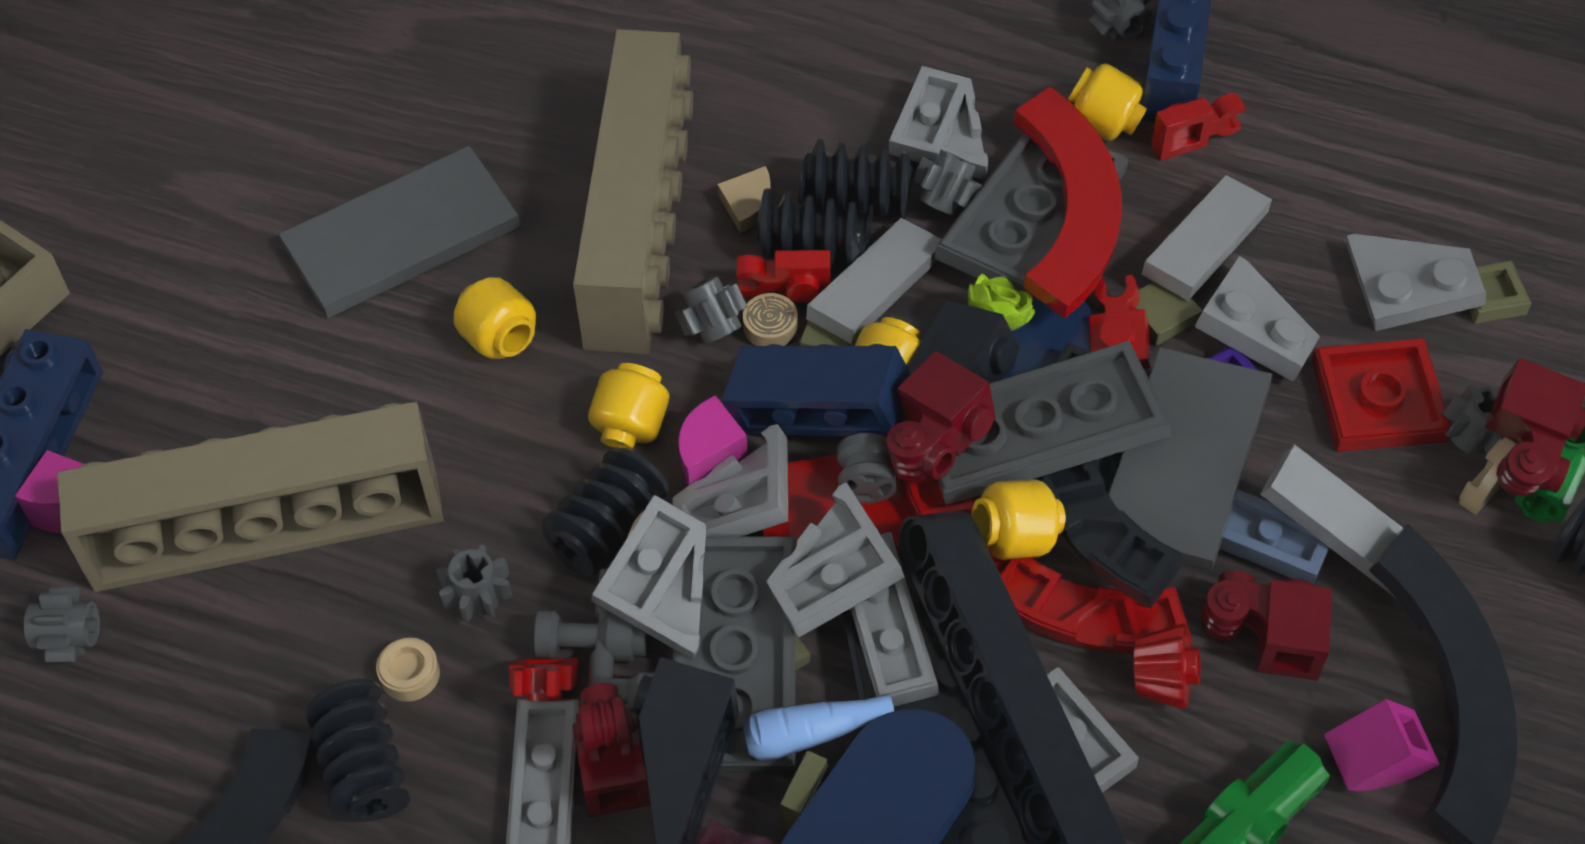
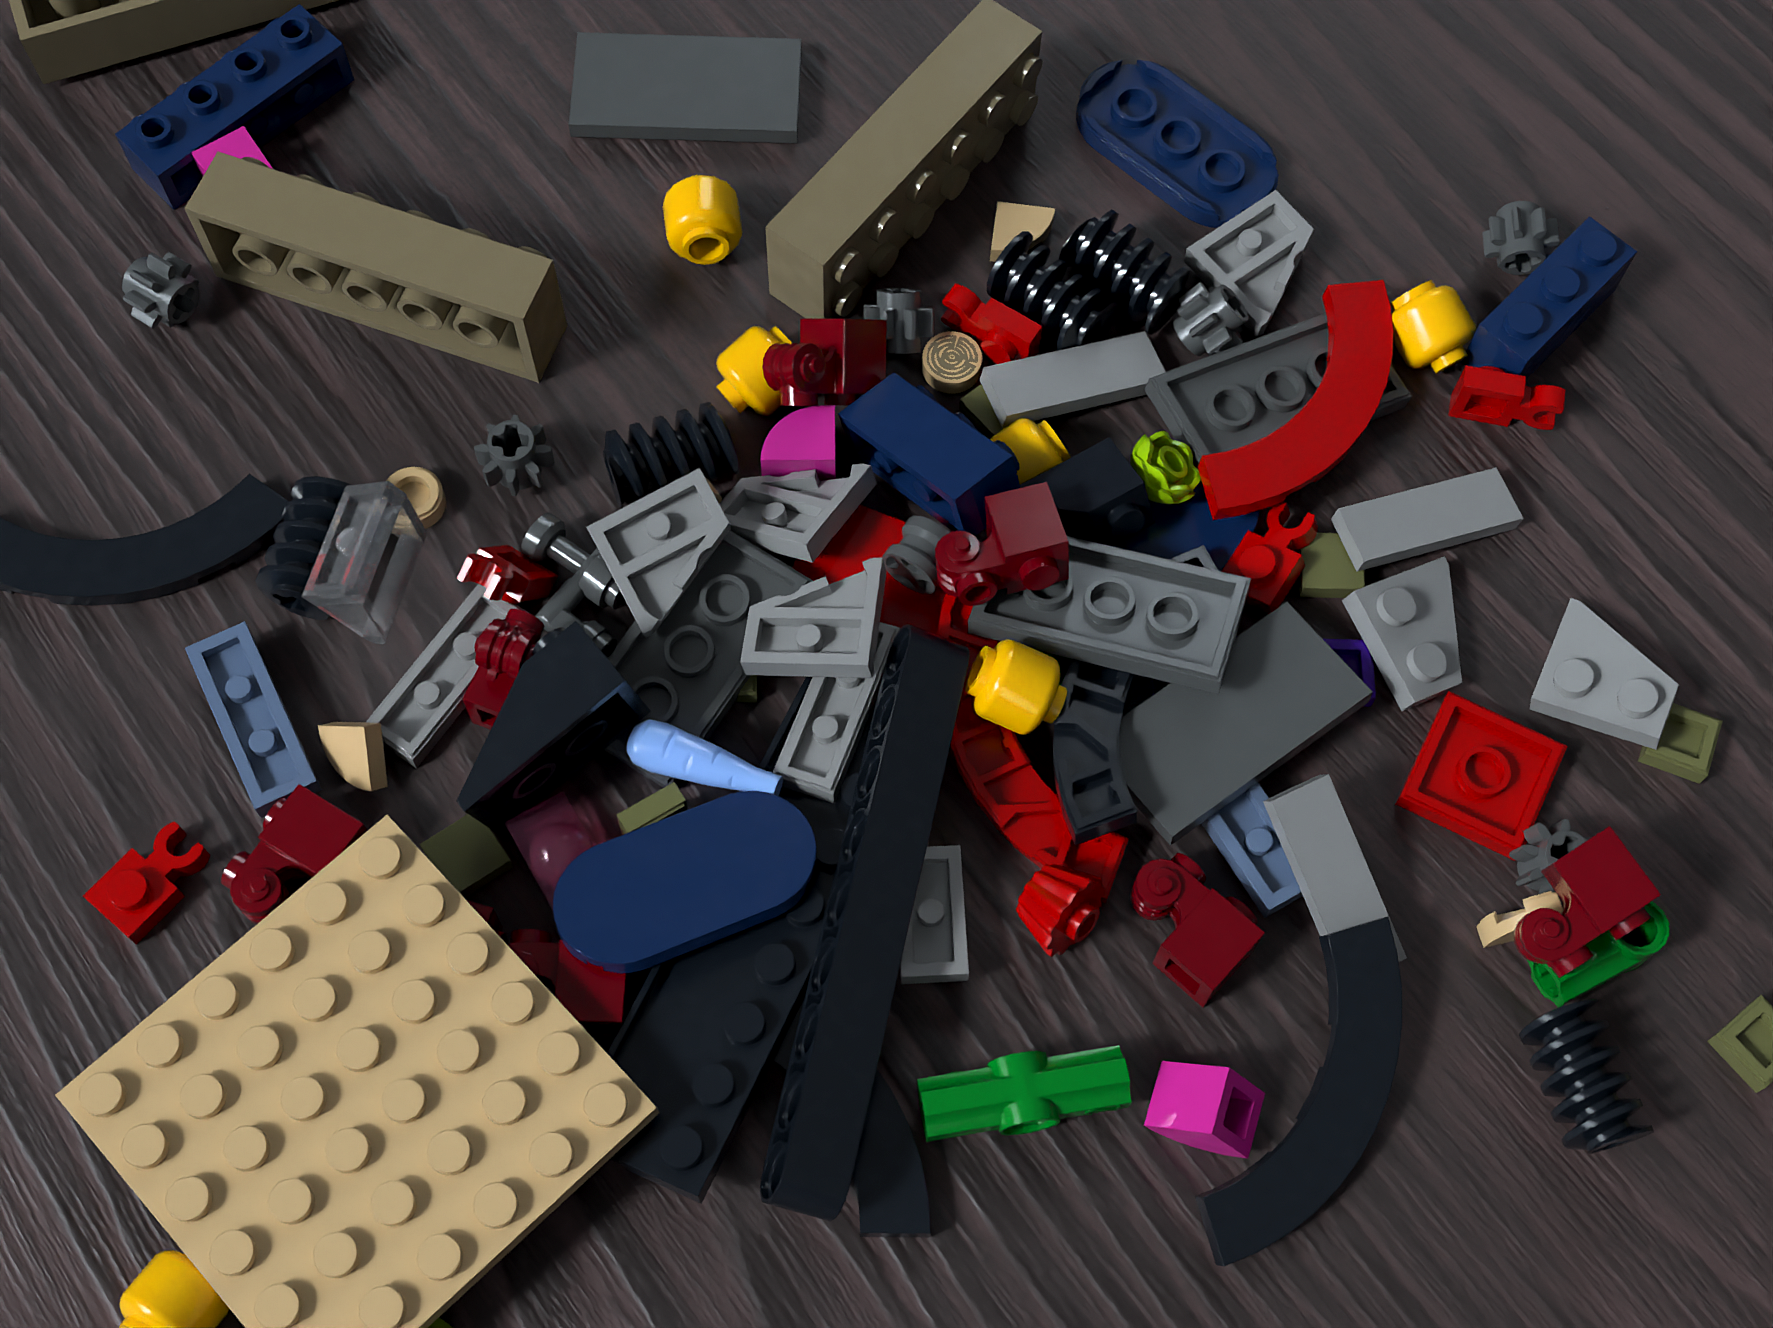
camera: 30 degrees right, 10 degrees up
(413, 731) = (353, 553): none -> clear tile
(687, 364) = (832, 359): none -> dark red brick
(816, 73) = (1175, 141): none -> dark blue tile

